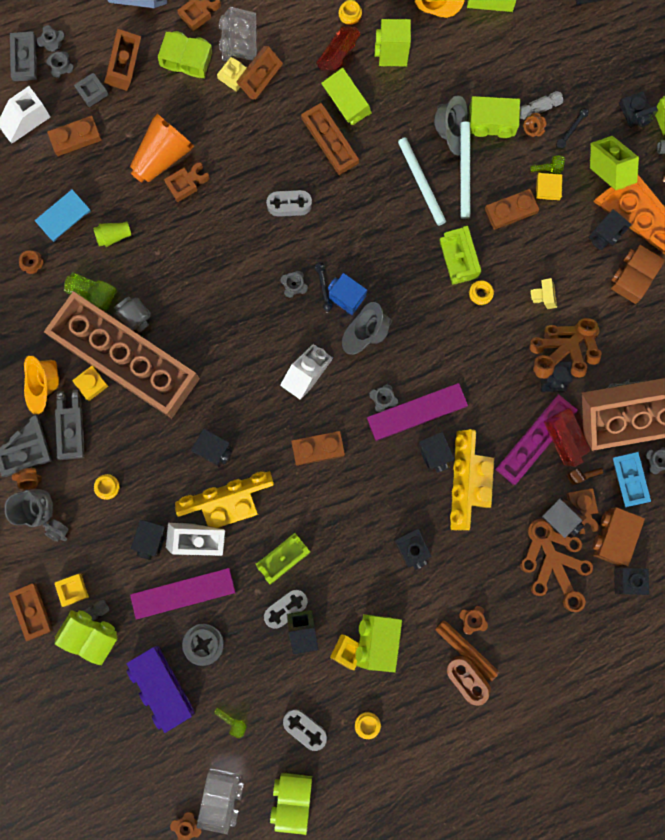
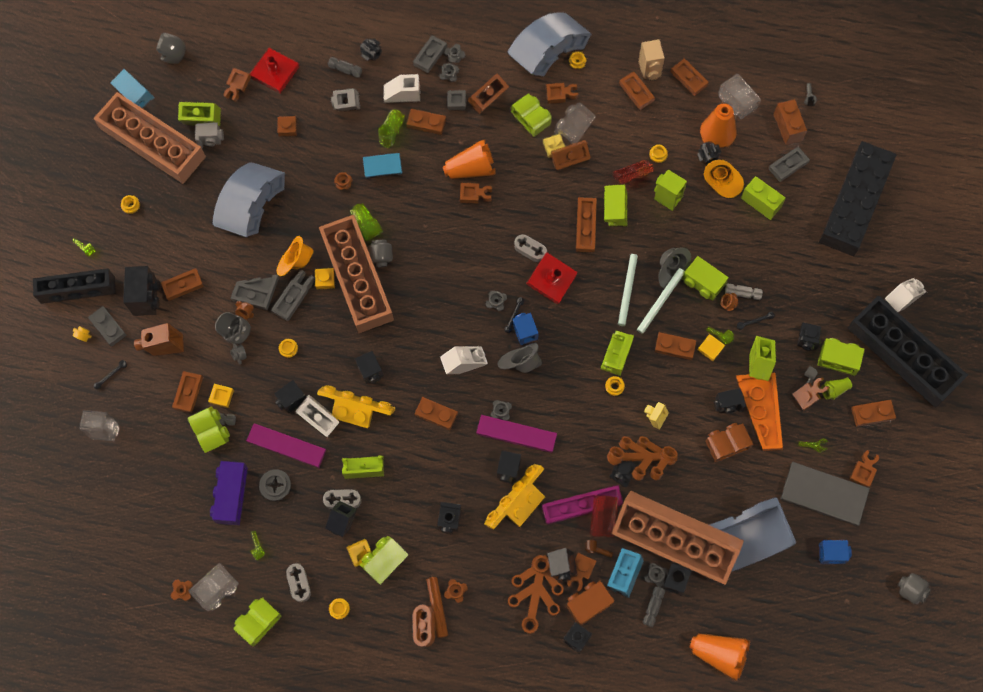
camera: 40 degrees right, 10 degrees down
(40, 167) = (390, 127): none -> clear neon green piece
(110, 233) = (404, 195): lime cone -> none
(335, 220) = (551, 278): none -> red tile

